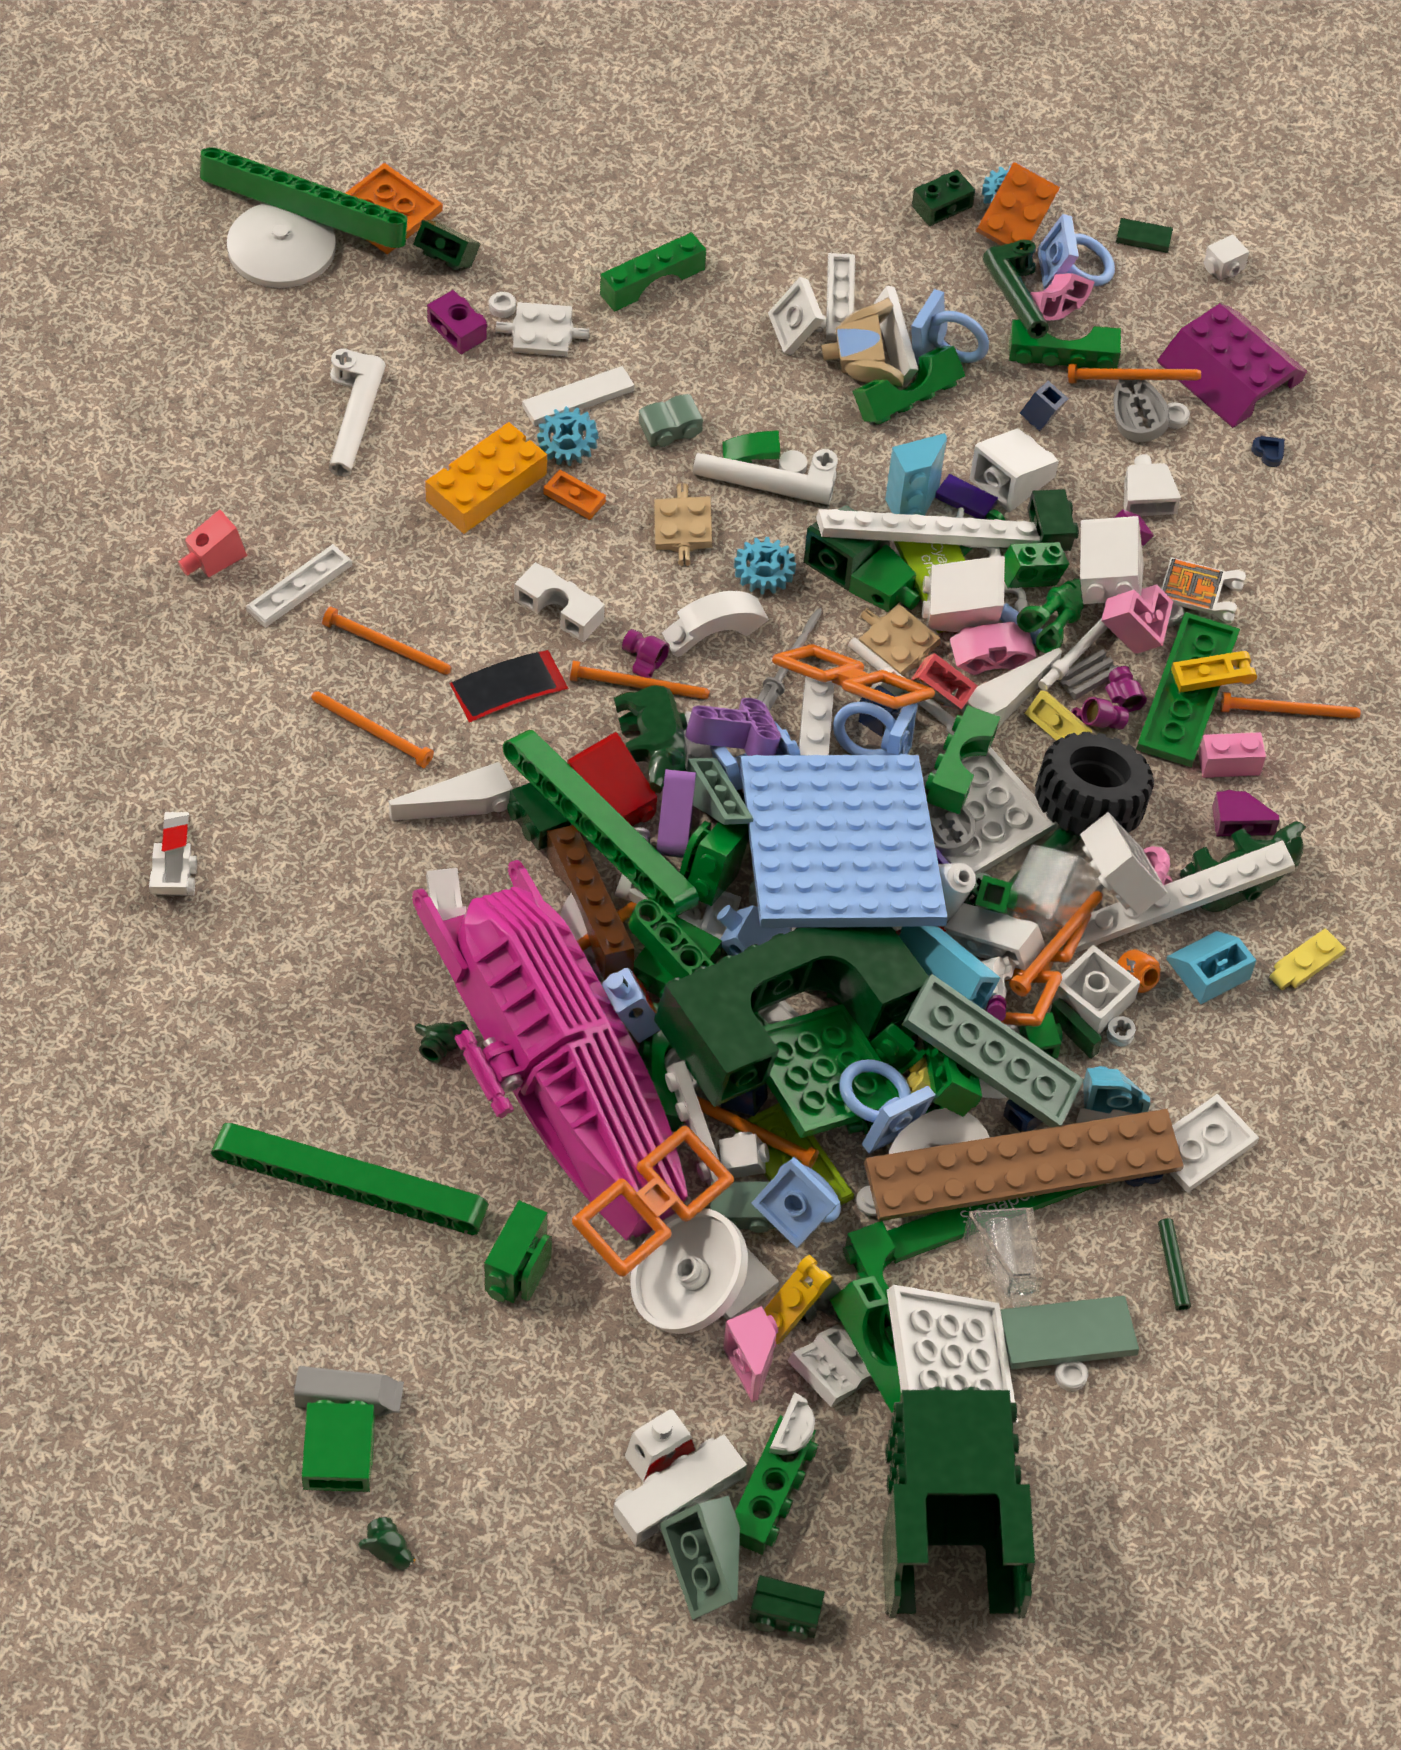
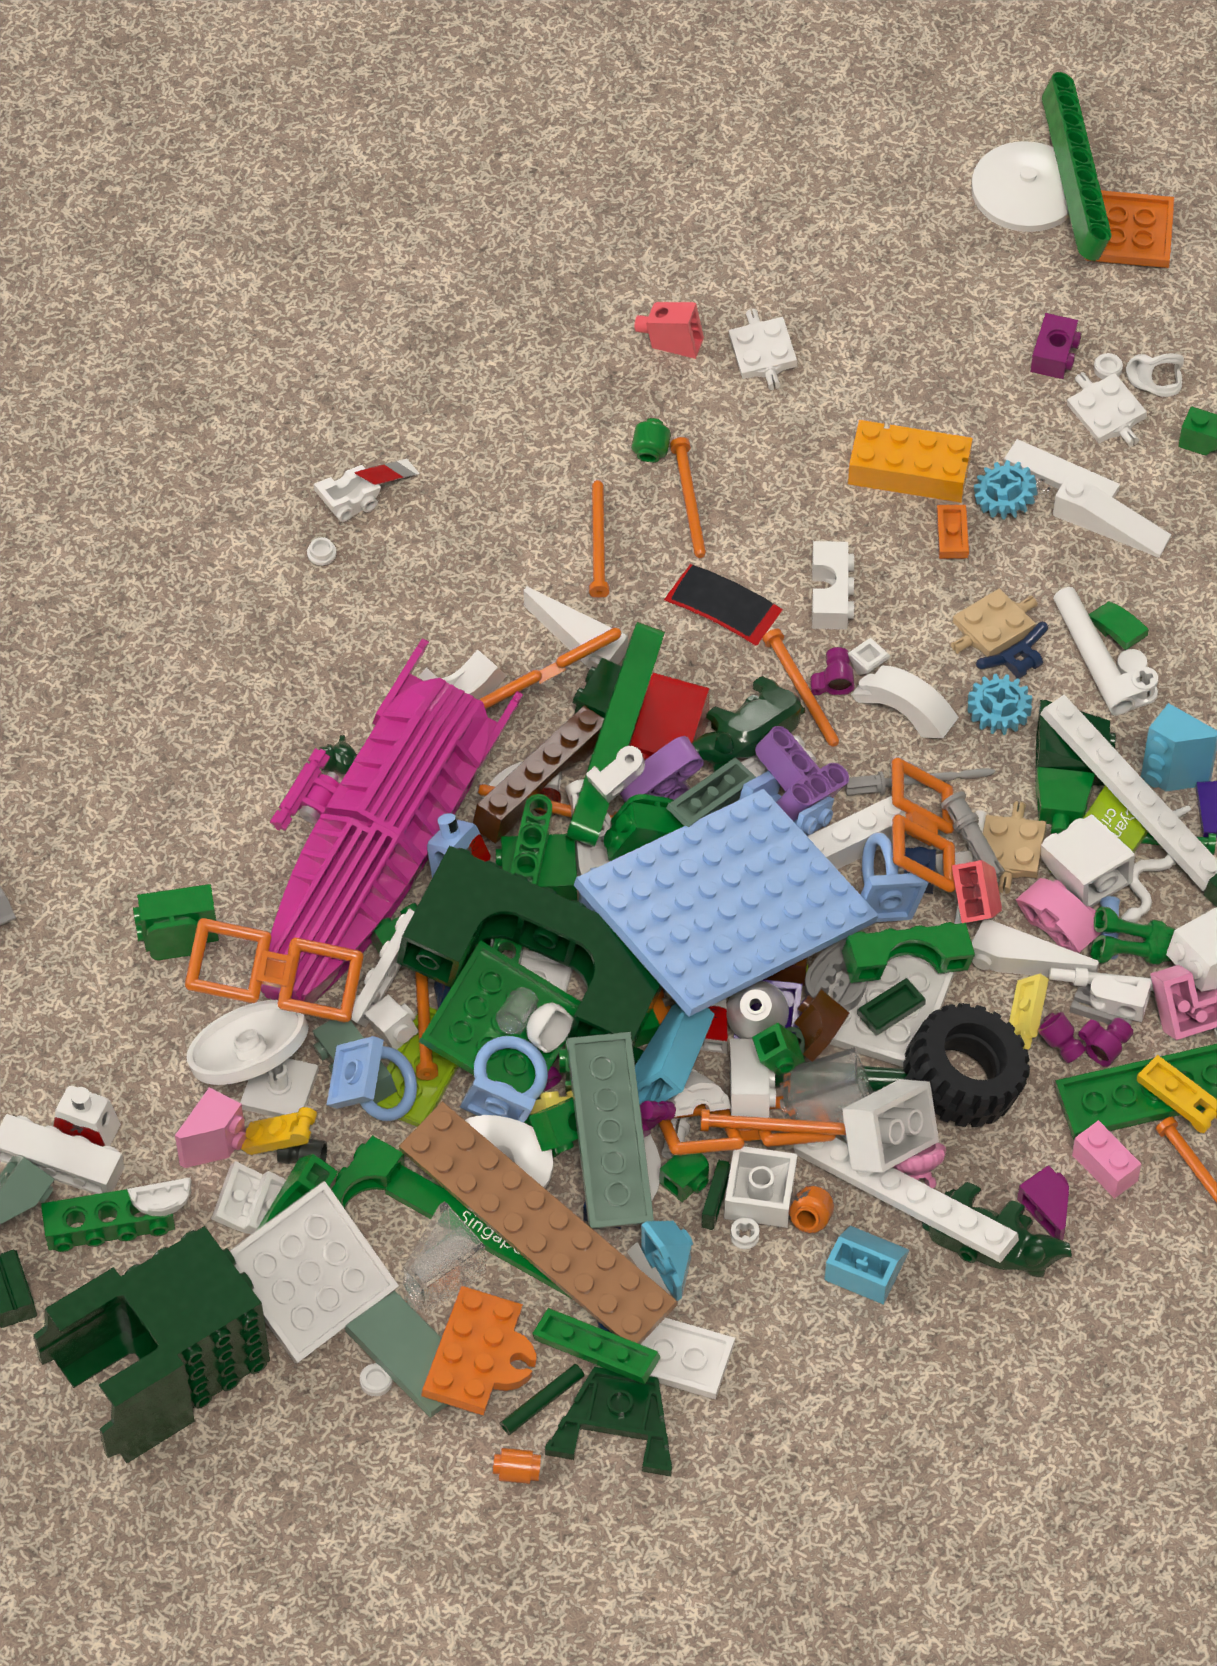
camera: 60 degrees right, 0 degrees up
(211, 929) = (321, 551): none -> white plate
(282, 504) = (763, 348): none -> white plate
(299, 585) = (695, 408): white tile -> none
(309, 631) = (651, 440): none -> green head
(350, 1177) = (168, 776): green beam -> none
(364, 375) = (940, 320): white axle -> none
(445, 243) = (1126, 288): dark green brick -> none
(498, 823) = (551, 670): none -> orange bar
(530, 283) = (1140, 373): none -> white piece
(627, 395) = (1102, 514): none -> white slope
(651, 619) = (867, 656): none -> white slope
(662, 837) = (618, 774): none -> white leg
(670, 420) = (1091, 550): sand green brick -> none
(737, 520) = (1023, 648): none -> dark blue piece
(829, 1048) = (516, 1011): none -> clear brick
(855, 1037) = (549, 1026): none -> white hair
(870, 651) = (967, 824): none -> light grey pin
(989, 855) = (819, 1022): none -> reddish brown arch
(994, 804) = (891, 1006): none -> dark green tile
(1034, 565) = (1174, 893): green brick -> none
(1100, 656) = (1120, 998): none -> white leg
(1103, 1282) = (478, 1352): none -> orange plate
(1161, 1192) = (596, 1345): none -> green plate
(1221, 1212) = (620, 1408): none -> dark green wing
(1227, 1317) = (517, 1465): none -> orange brick
(1307, 960) = (940, 1338): light yellow hinge -> none

